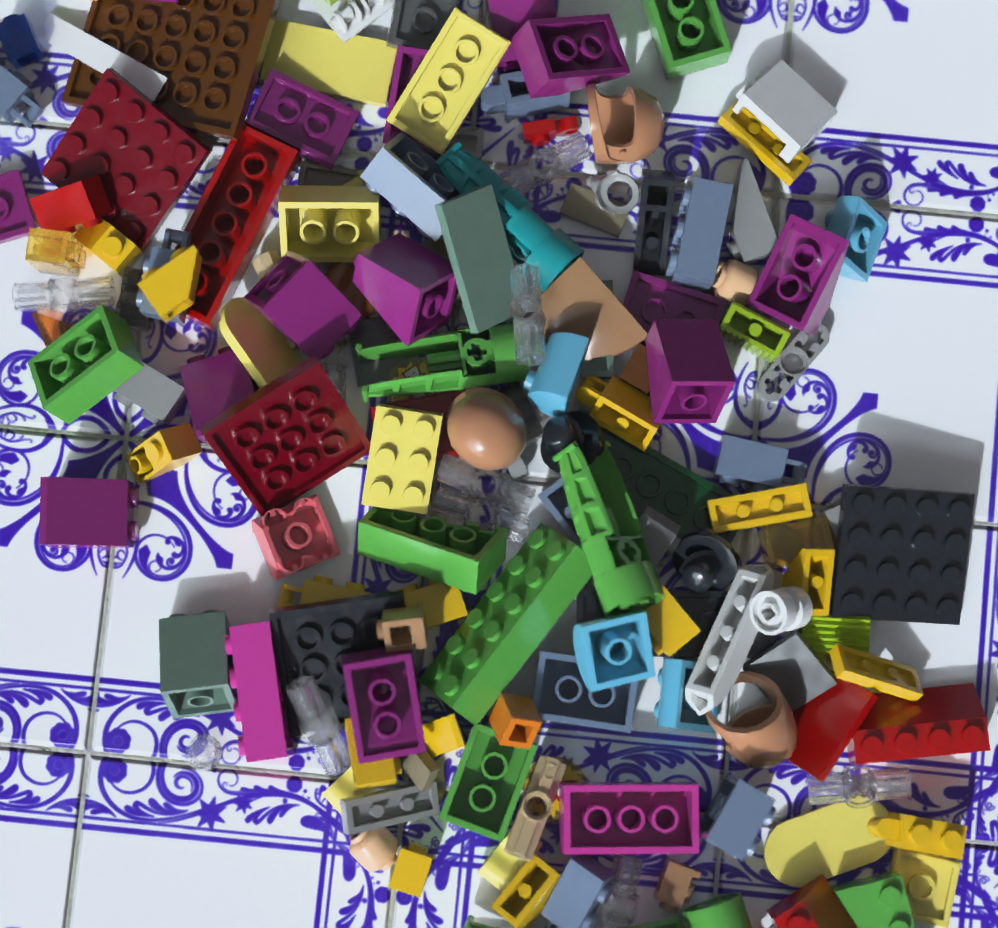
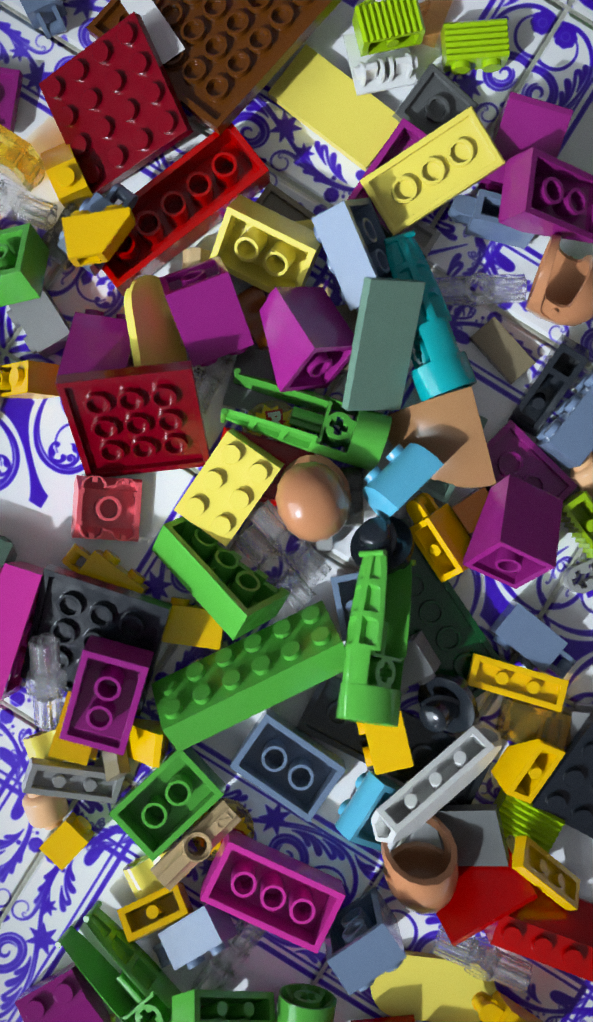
camera: 25 degrees right, 5 degrees up
(72, 205) = (49, 123): red brick -> none
(302, 118) = (287, 144): magenta plate -> none
(403, 628) = (154, 640): brick -> none
(515, 720) = (214, 765): orange brick -> none
(528, 331) = (392, 431): clear piece -> none
(542, 131) = (492, 258): red plate -> none
(600, 186) = (518, 331): light grey piece -> none
(614, 650) = (329, 750): medium azure brick -> none
(675, 885) = (284, 963): medium nougat brick -> none
(781, 610) = (492, 784): white wheel -> none

